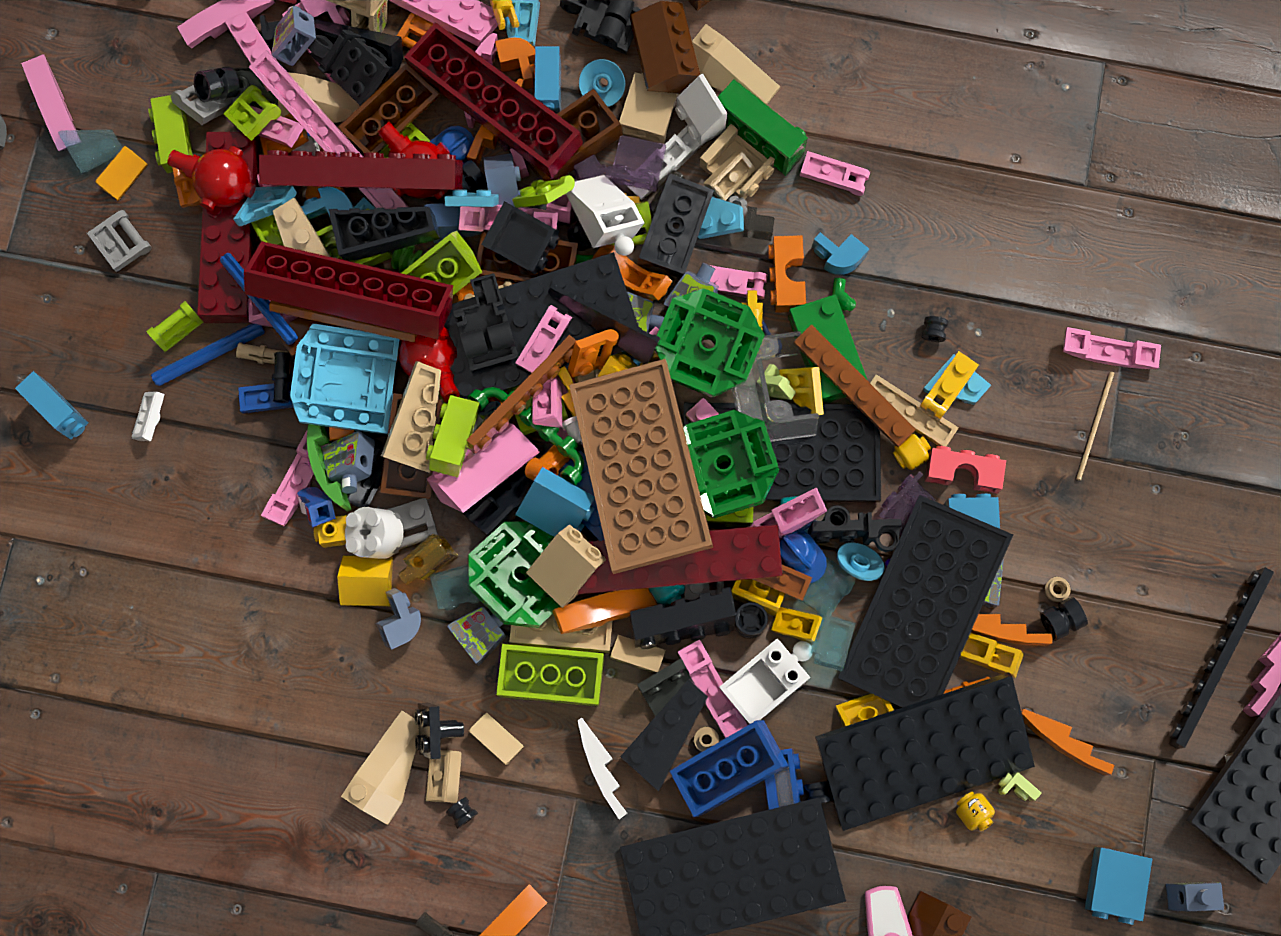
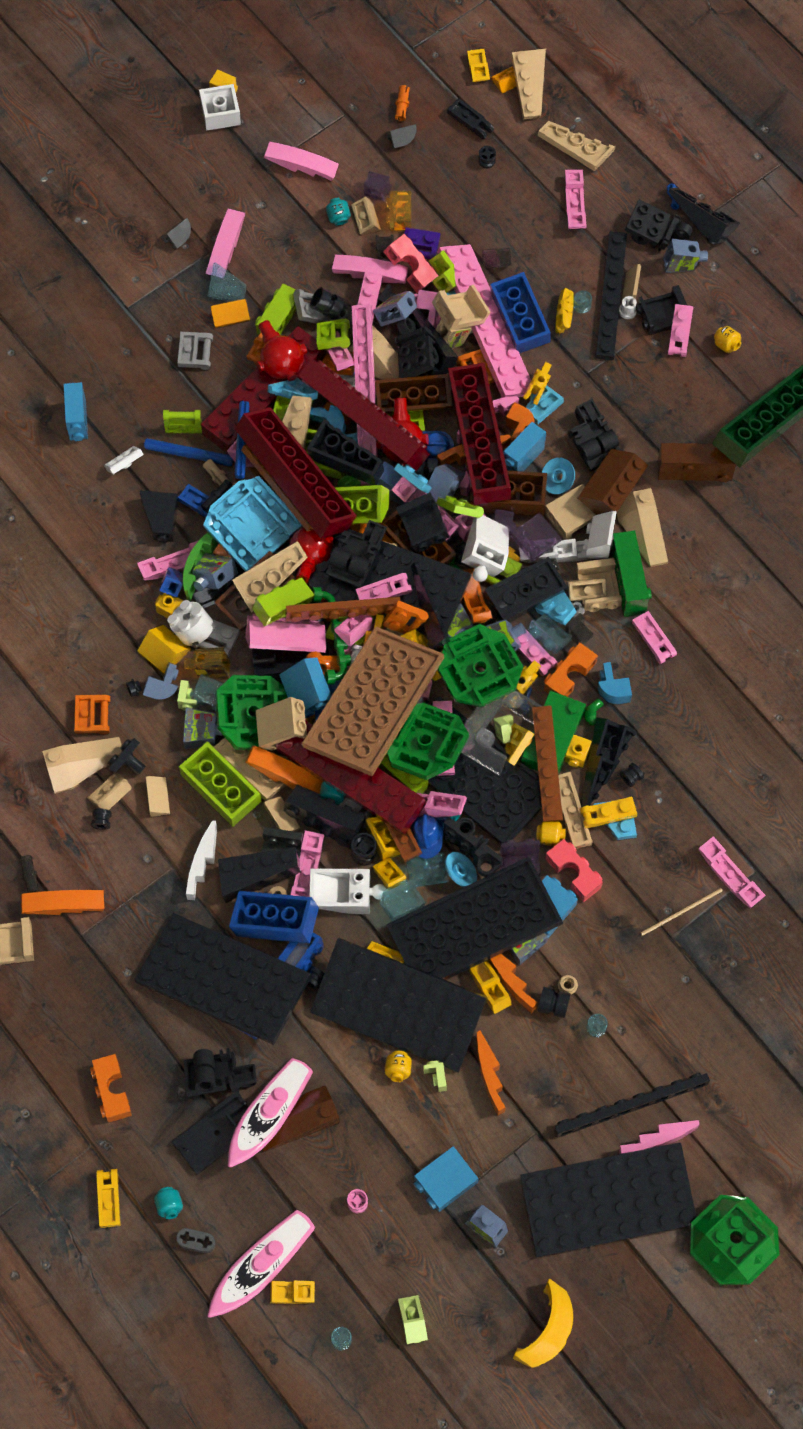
camera: 40 degrees right, 10 degrees down
(237, 442) = (160, 513): none -> black slope
(347, 716) = (86, 714): none -> orange plate
(372, 647) = (133, 687): none -> black plate
(431, 609) = (184, 698): none -> yellowish green bracket
(733, 251) = (549, 633): none -> clear light blue bracket
(867, 347) = (578, 751): none -> yellow brick
(885, 319) = (606, 747): none -> black wedge
(1124, 602) = (597, 1020): none -> clear light blue wheel

